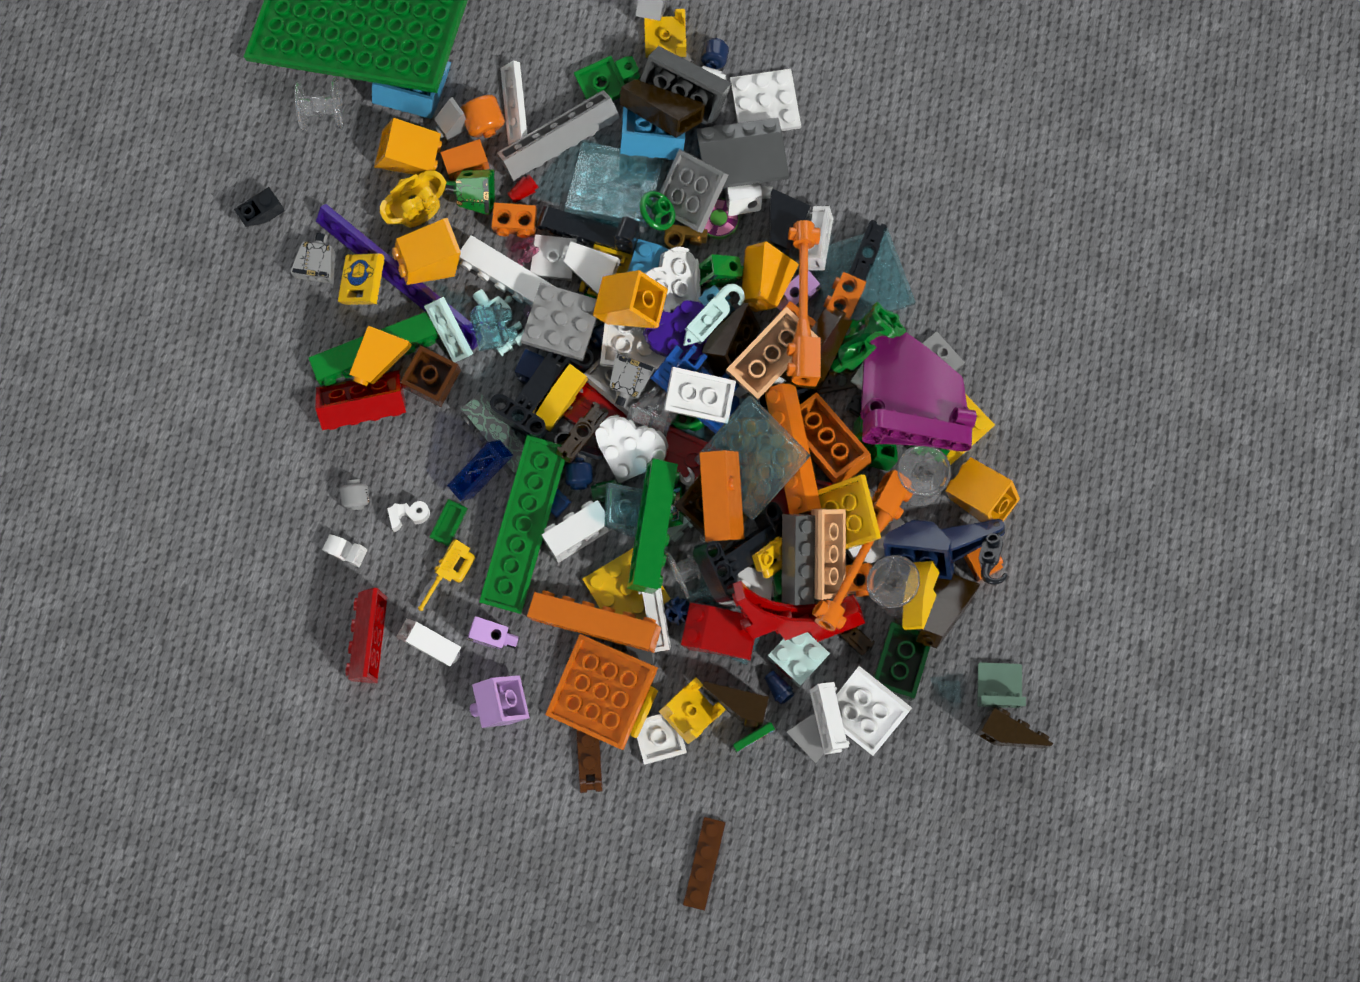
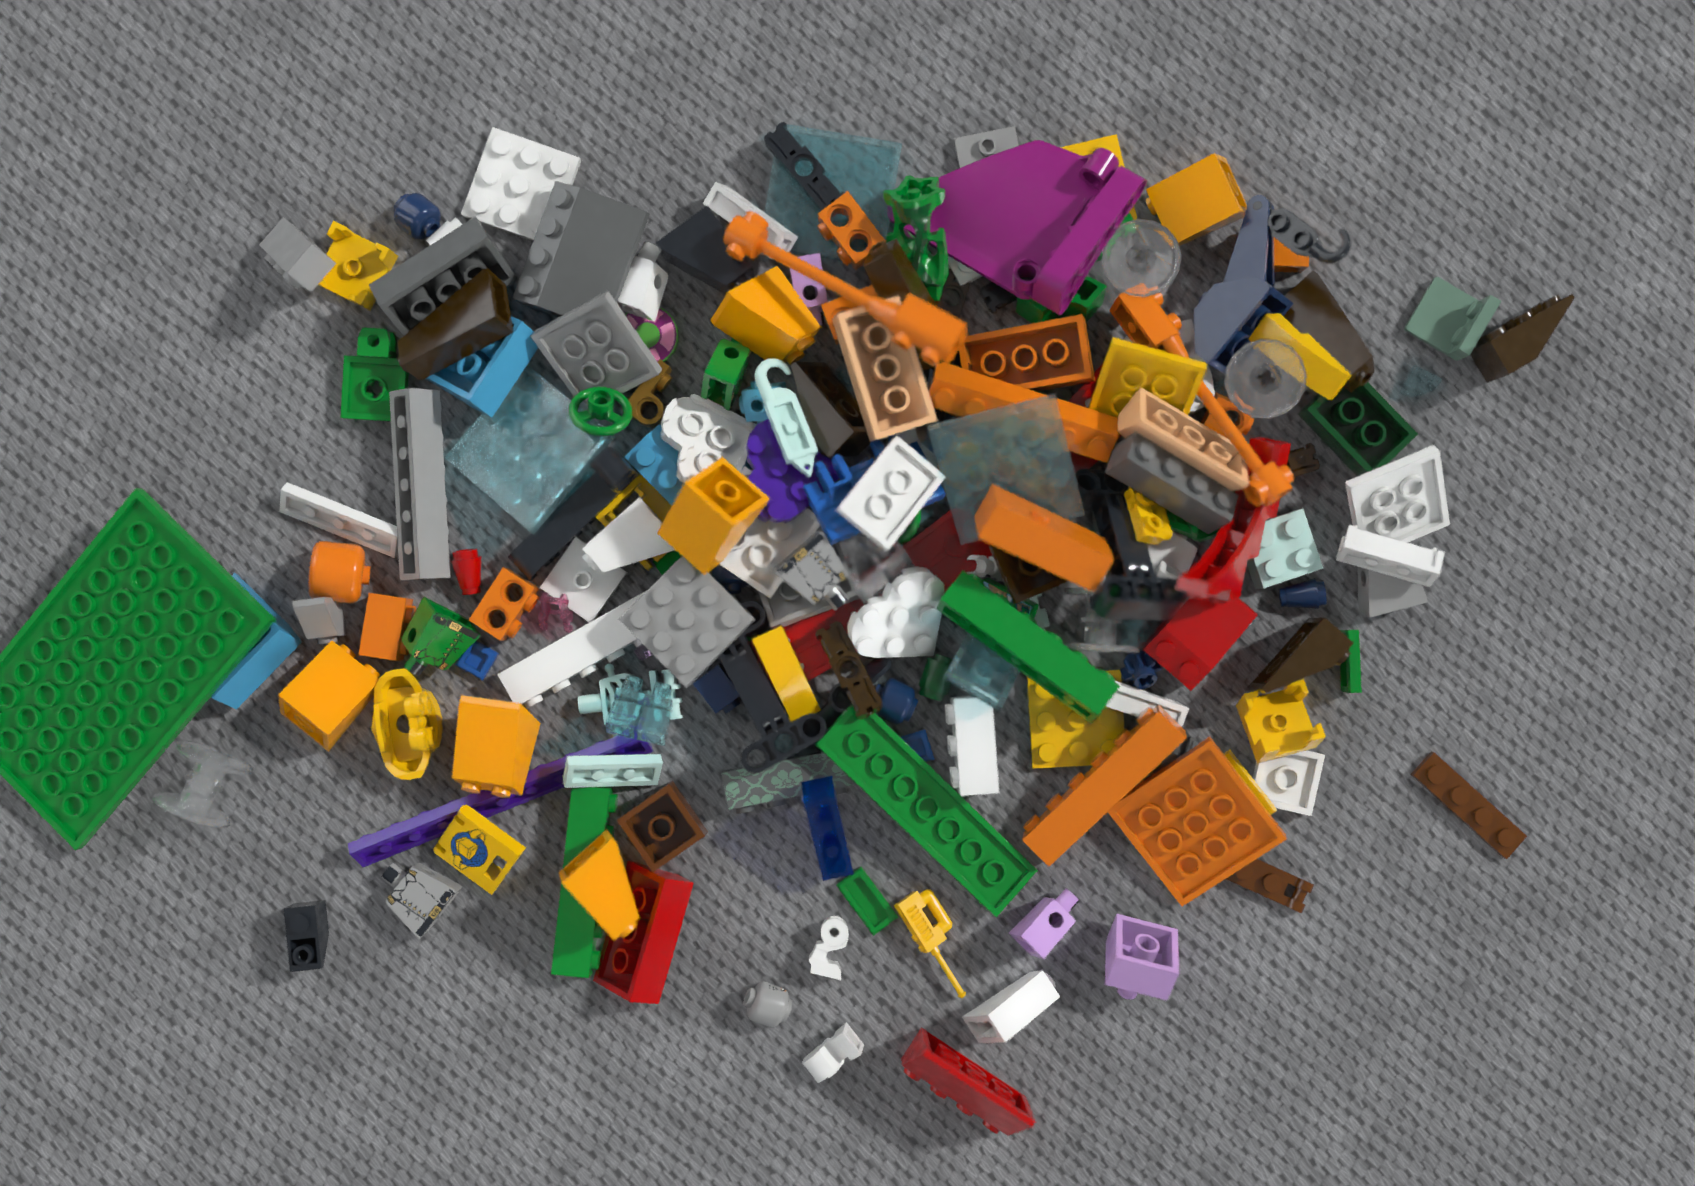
camera: 65 degrees left, 10 degrees up
(473, 222) = (477, 660): none -> blue tile

